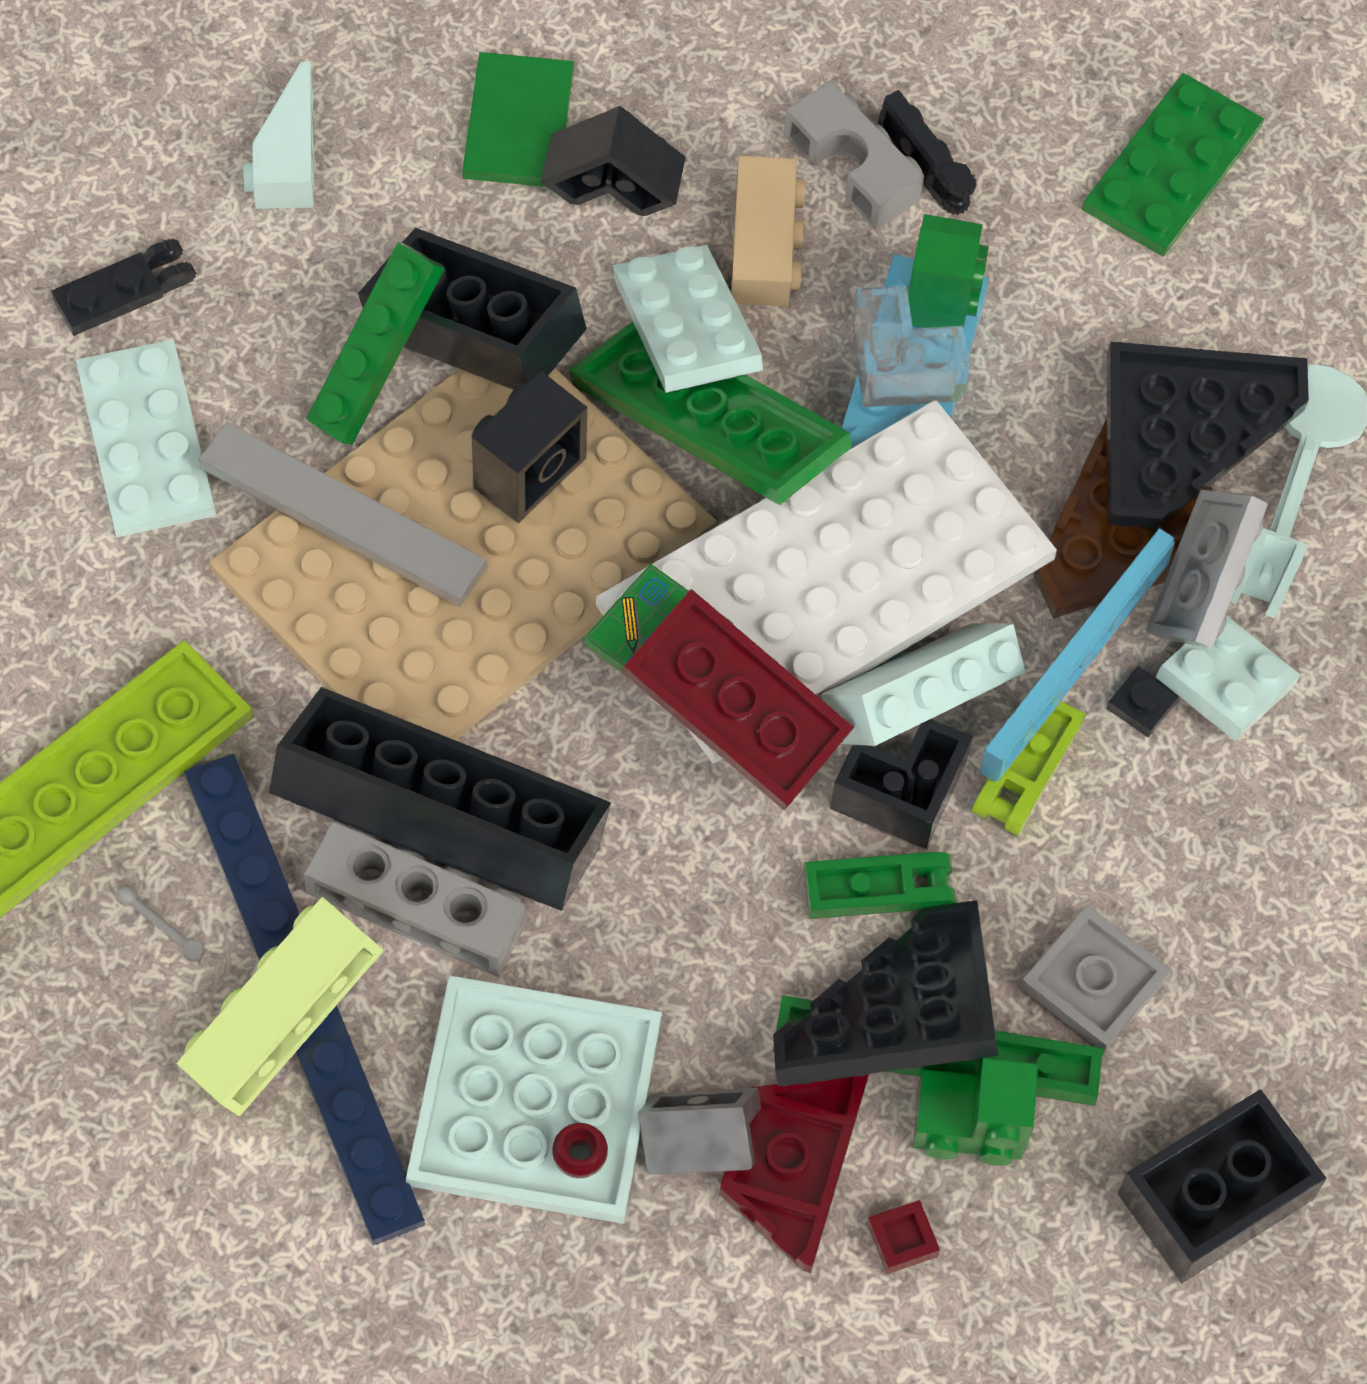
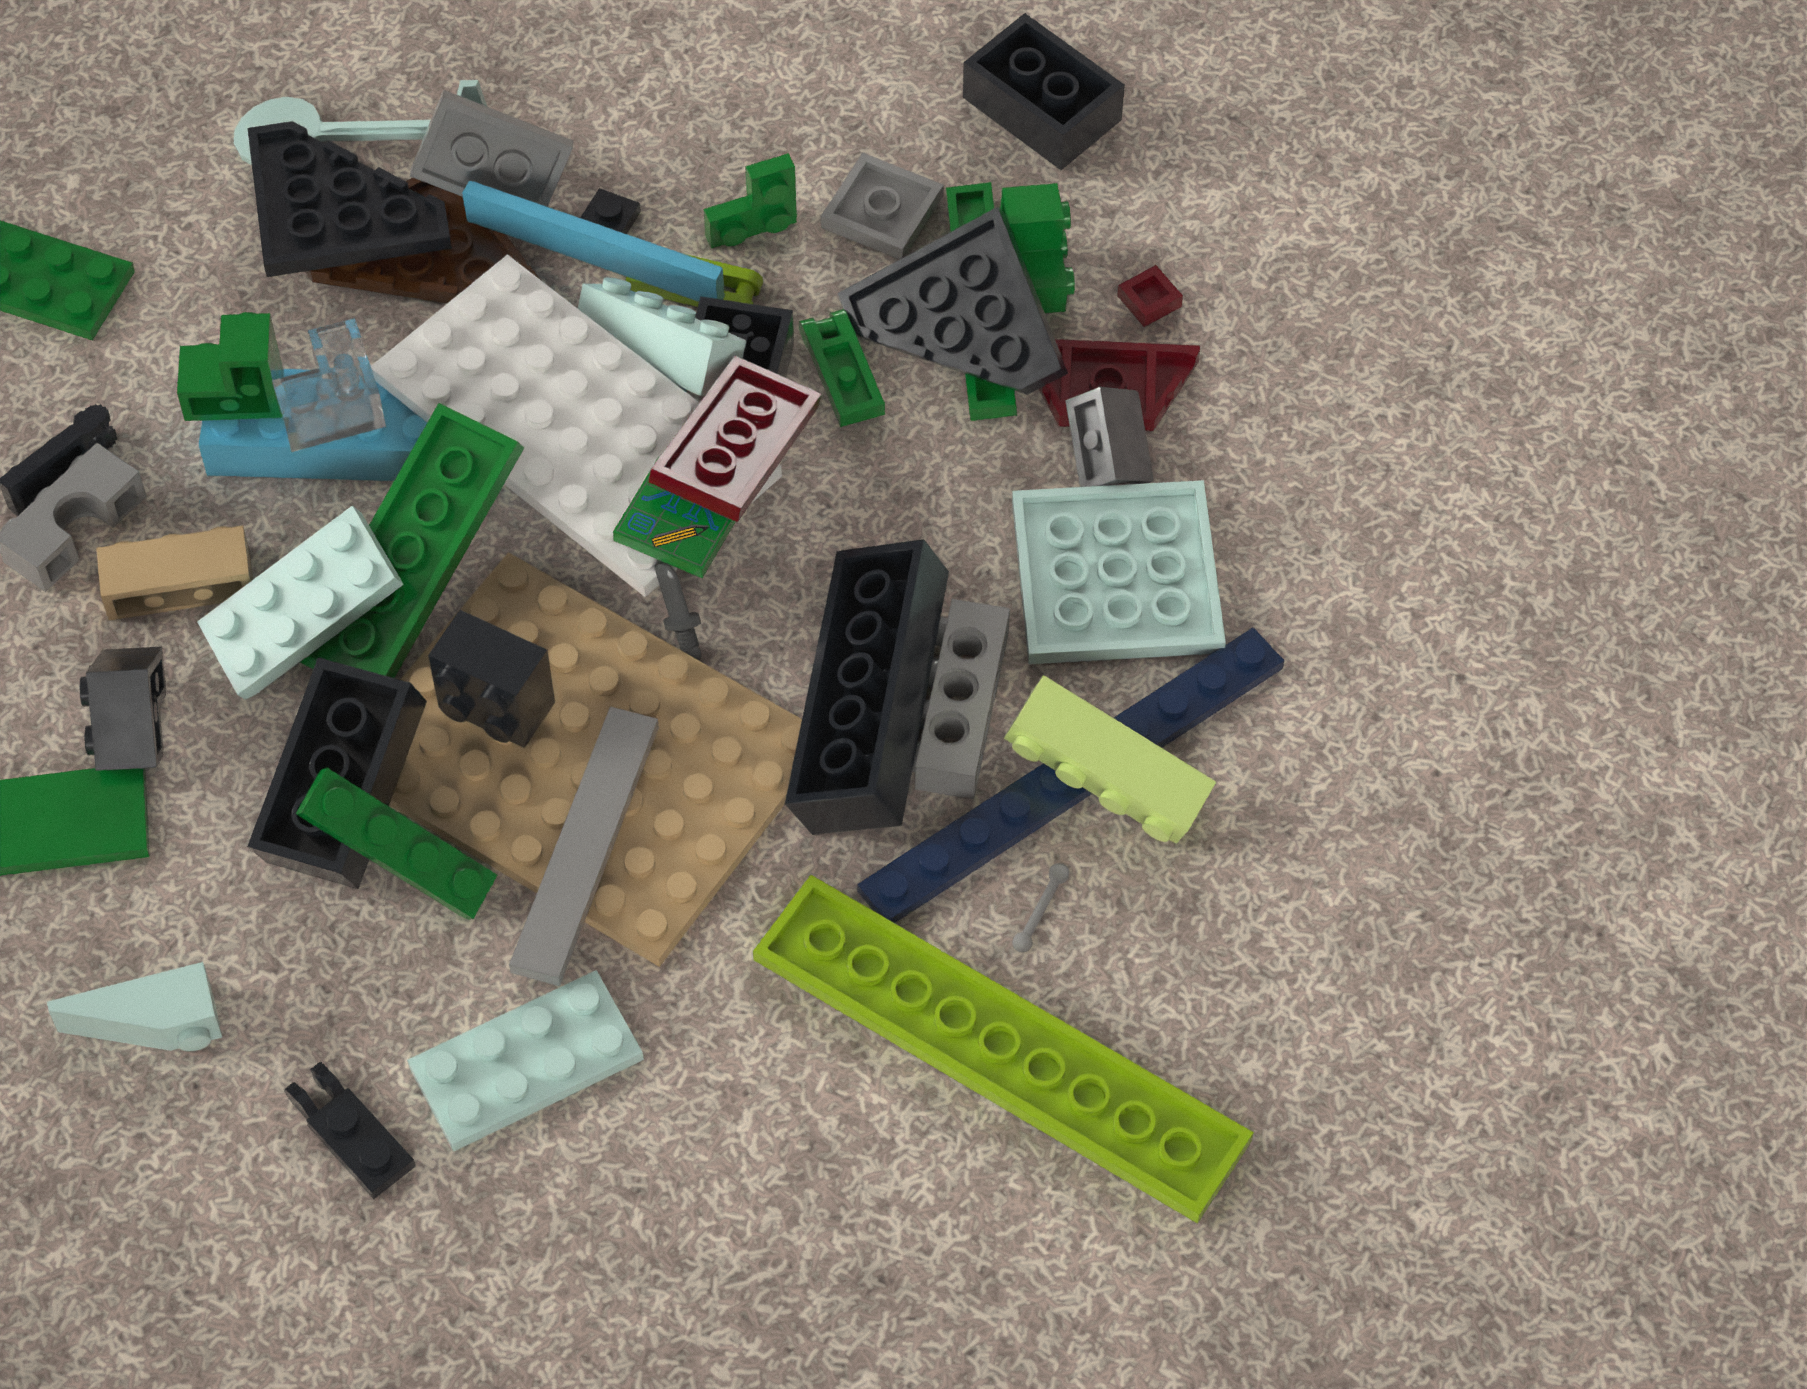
camera: 100 degrees left, 5 degrees down
(571, 653) = (679, 617): none -> dark grey piece
(584, 1135) = (1163, 503): dark red plate -> none
(1110, 834) = (766, 208): none -> green plate
(1231, 681) = (594, 156): light aqua plate -> none

